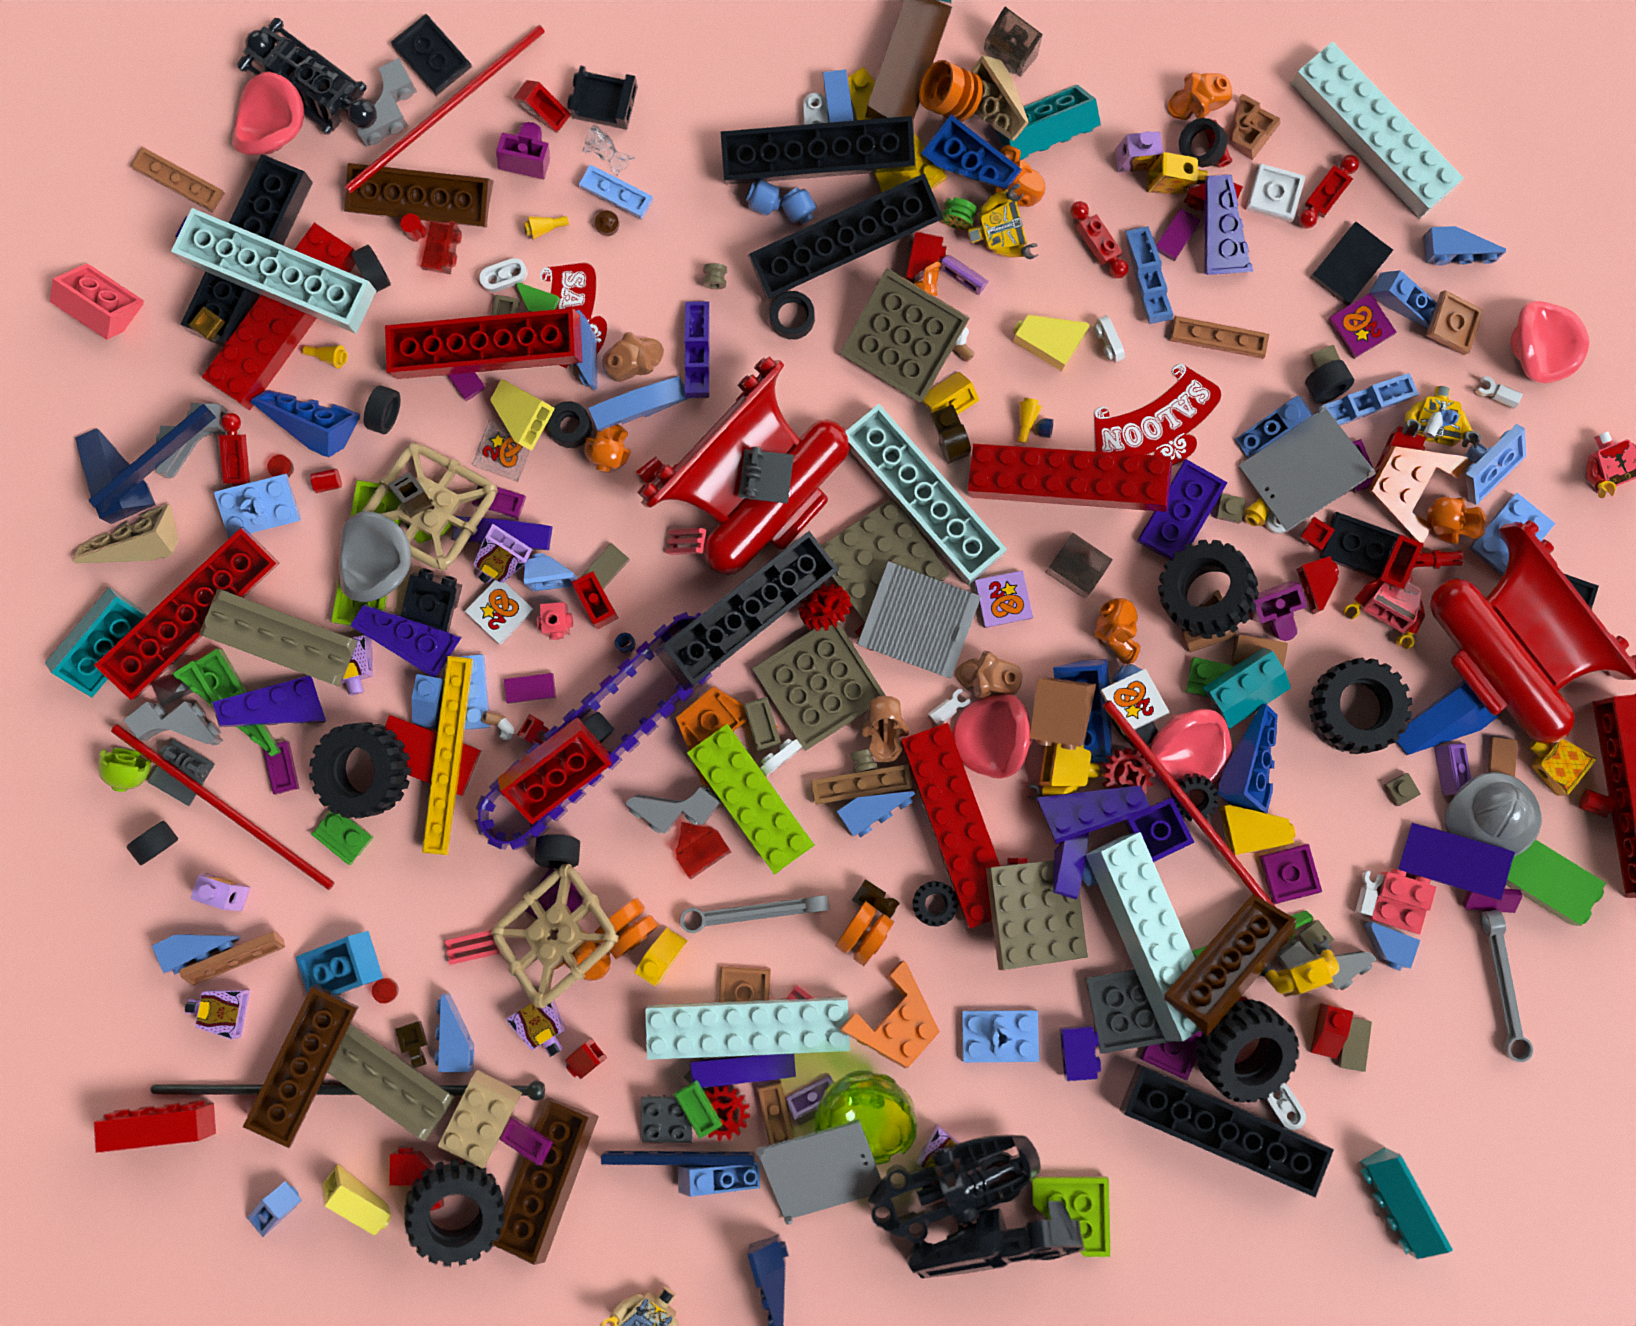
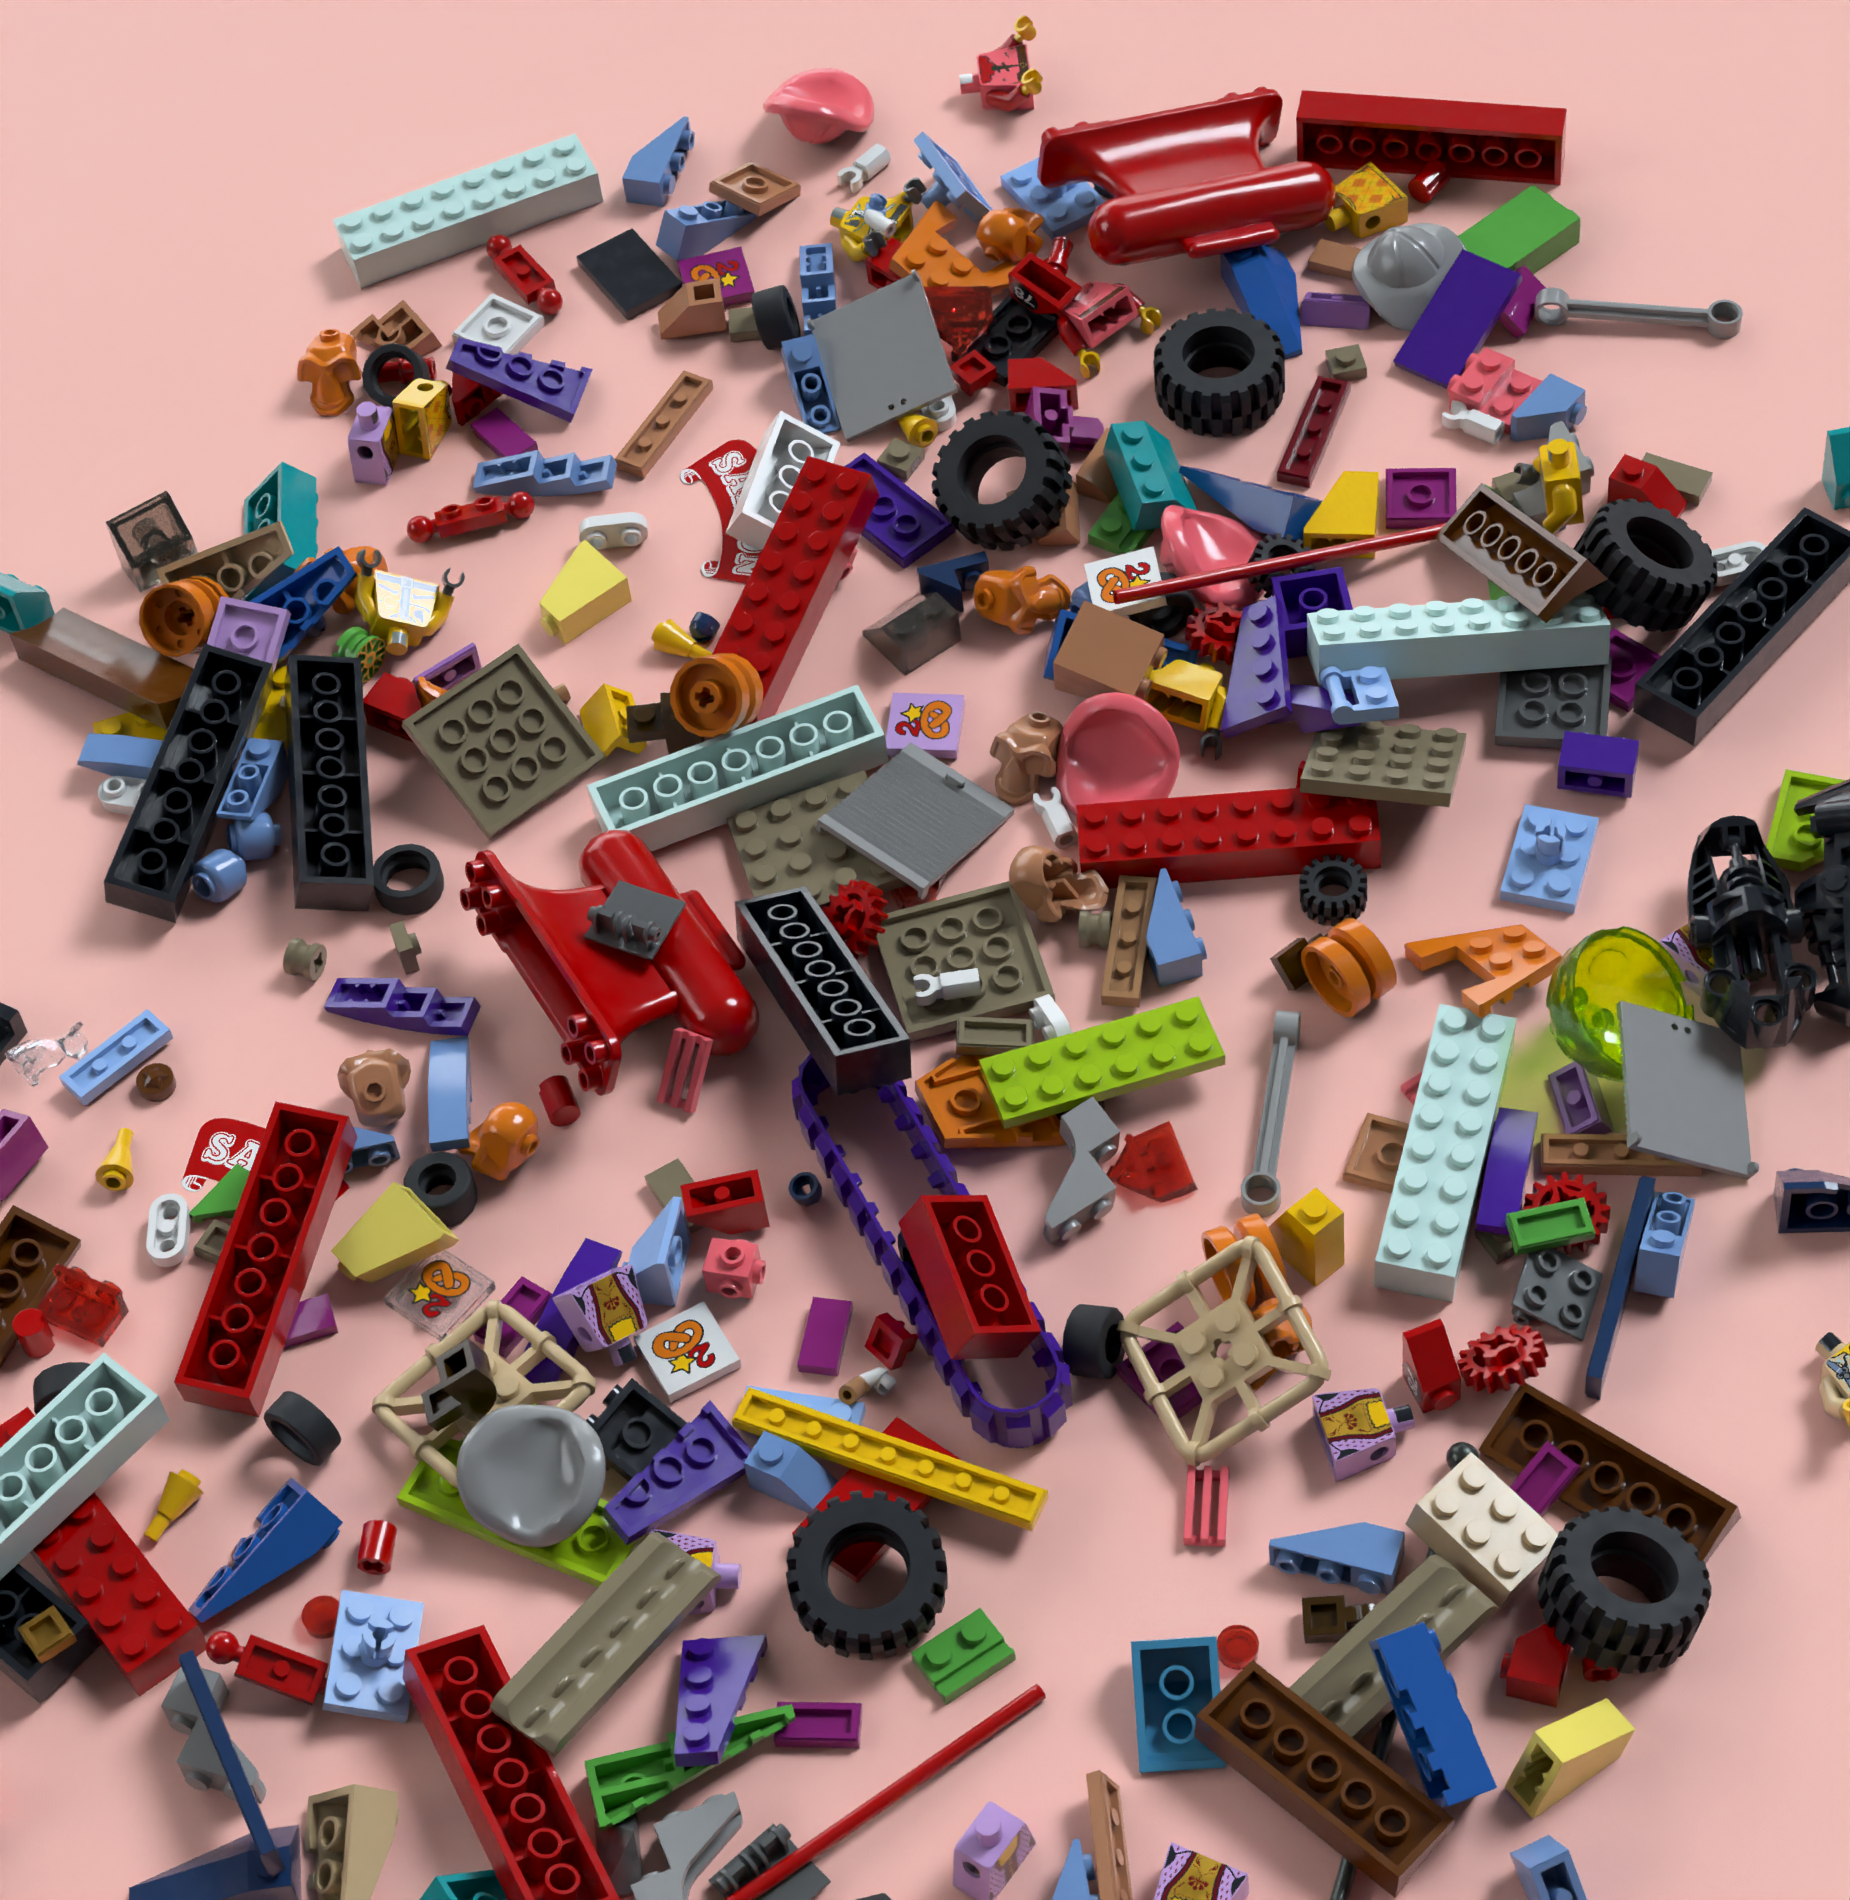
camera: 70 degrees left, 30 degrees down
(341, 1123) = (1431, 1716): none -> blue wedge
(613, 1092) = (1502, 1358): none -> red gear
(739, 334) = (406, 946): none -> dark tan plate
(789, 685) = (947, 986): none -> white bar
(832, 190) = (256, 780): none -> medium blue slope
(938, 138) = (249, 629): none -> lavender plate
(965, 462) = (716, 694): none -> orange wheel
(1079, 894) = (1371, 692): none -> light blue plate
(1125, 574) = (953, 577): none -> dark blue slope
(1187, 437) = (773, 475): none -> white slope
(1321, 322) = (693, 310): none -> nougat slope
(1333, 784) = (1313, 431): none -> dark red tile
(1363, 508) = (960, 313): none -> clear red slope

